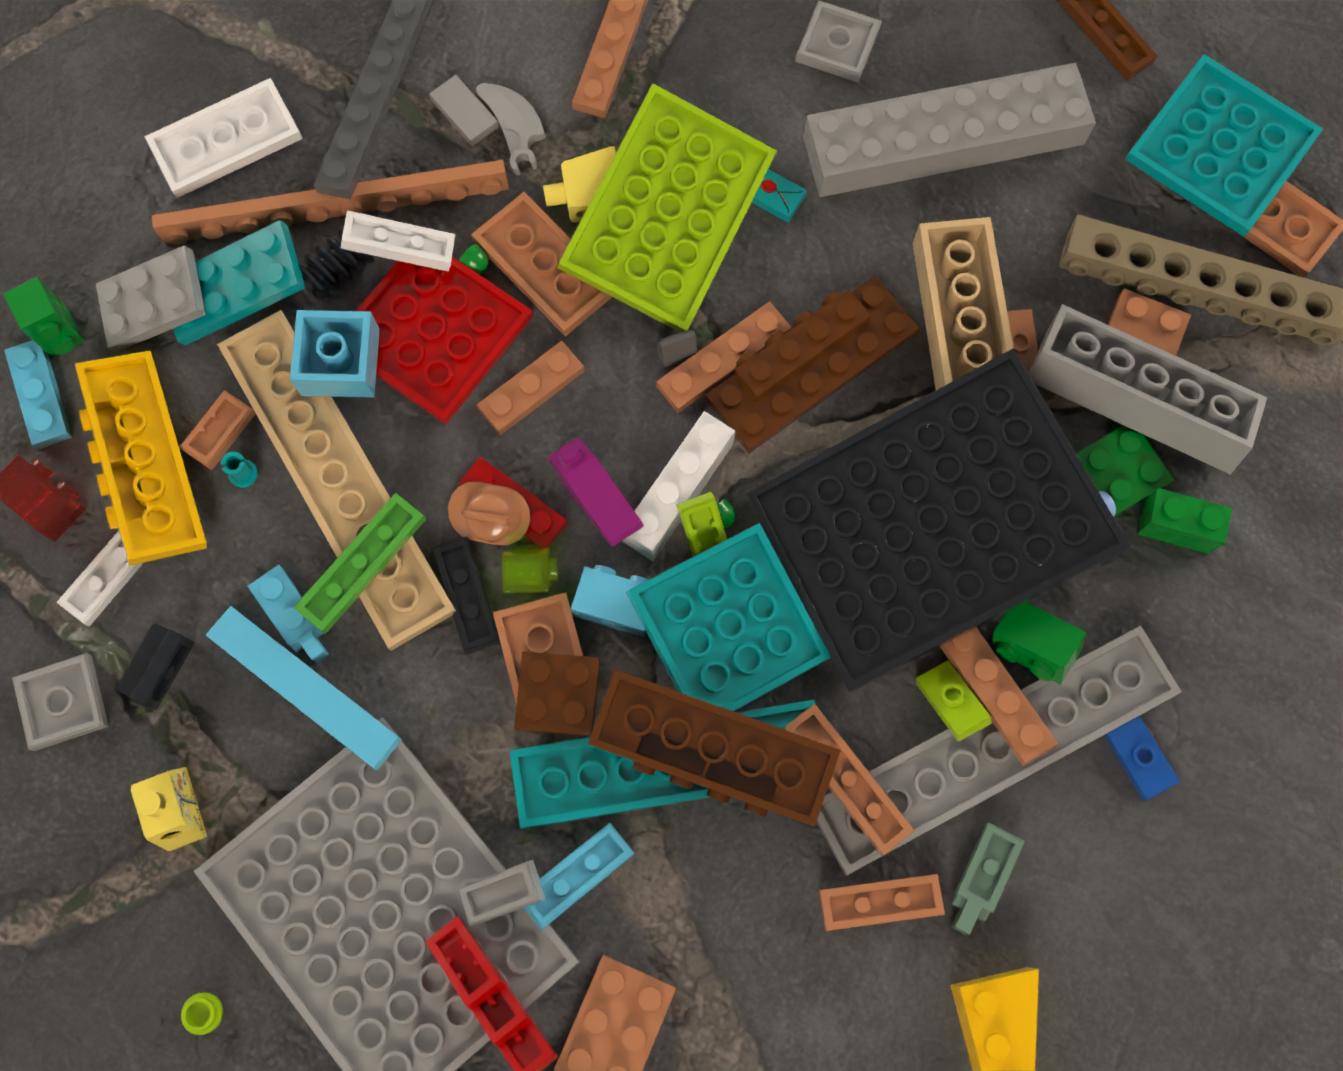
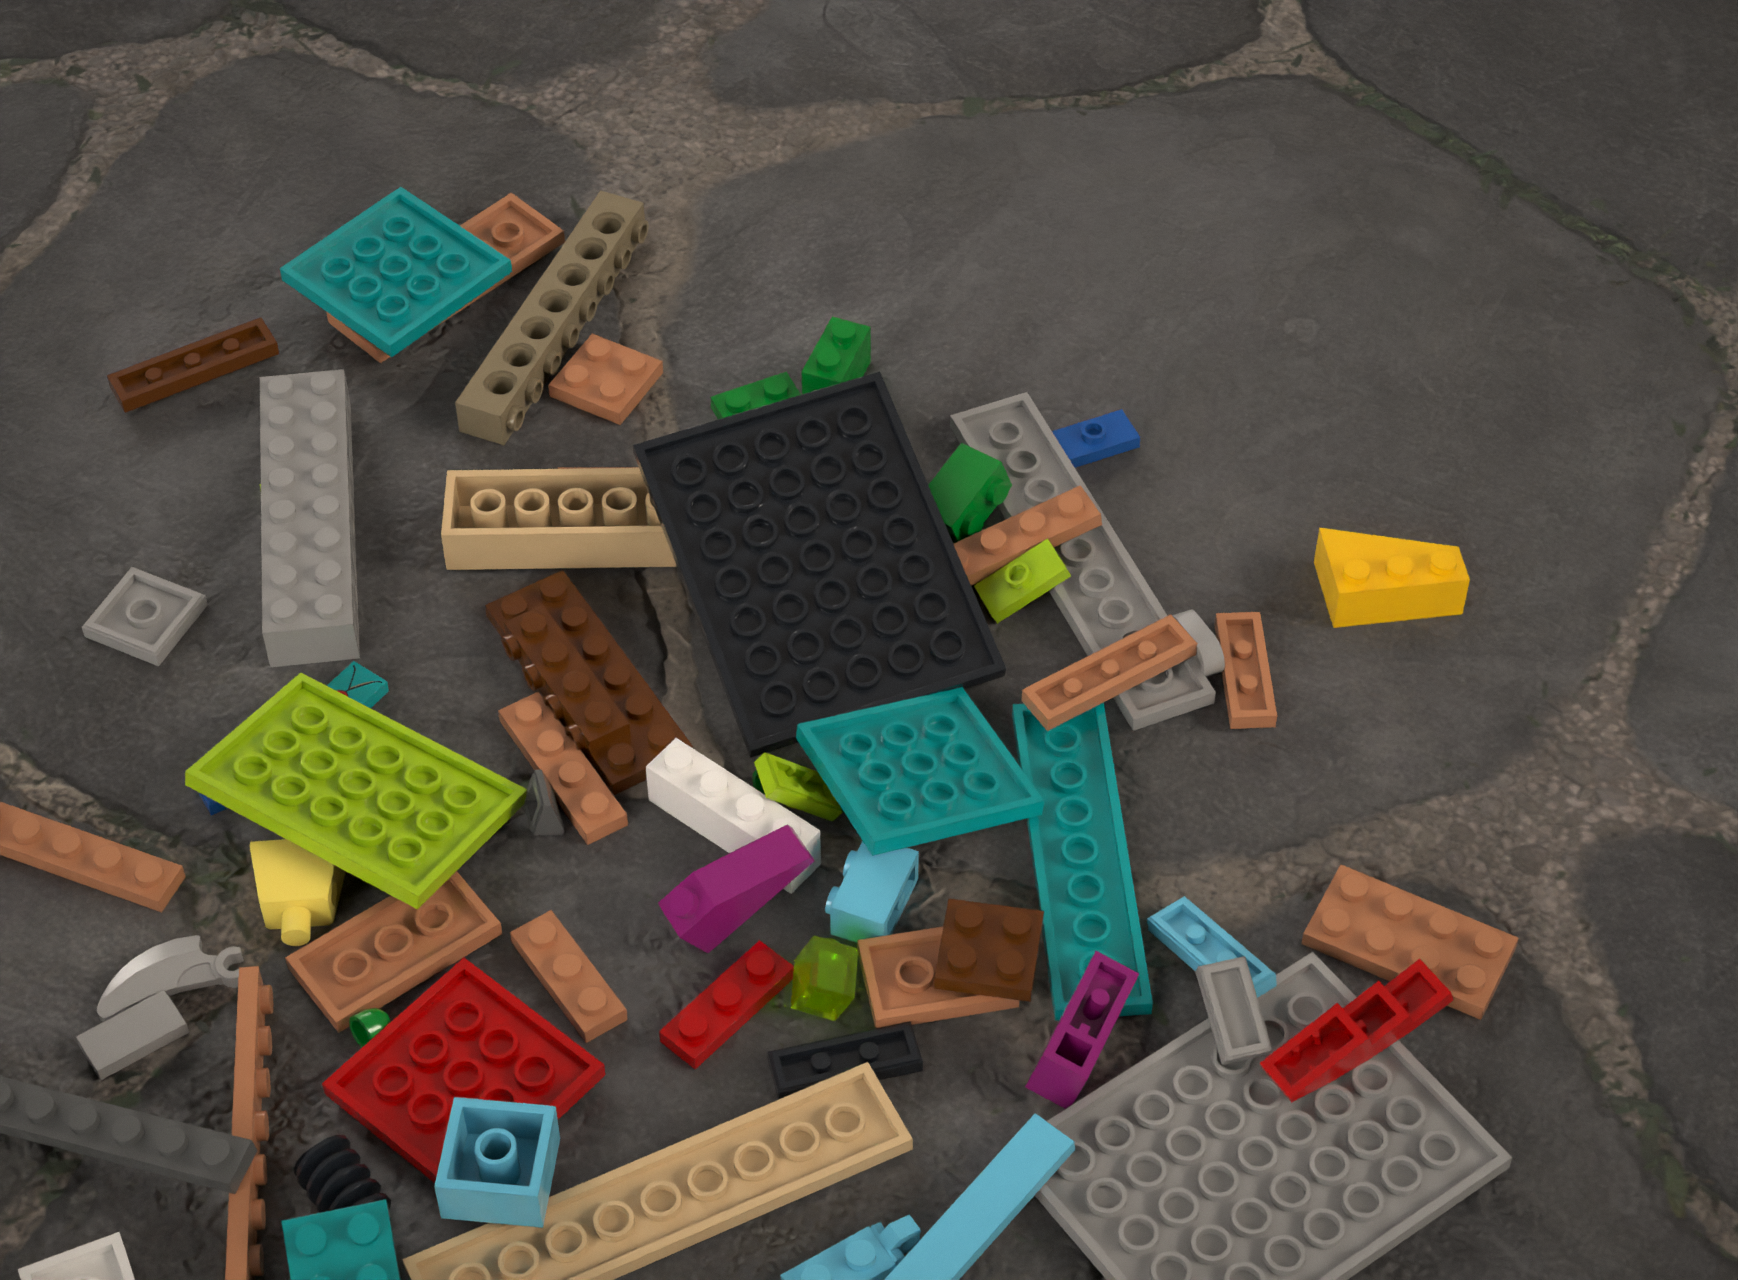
camera: 85 degrees left, 25 degrees down
(360, 563) = (798, 1154): bright green plate -> none
(397, 241) = (340, 1086): white plate -> none
(485, 772) = (1082, 1031): none -> magenta slope
(489, 513) = (740, 1023): nougat piece -> none
(714, 749) = (1070, 783): reddish brown plate -> none
(901, 857) = (1209, 651): none -> light grey beam
(985, 876) = (1220, 578): sand green hinge -> none
(1148, 389) = (681, 367): light grey brick -> none

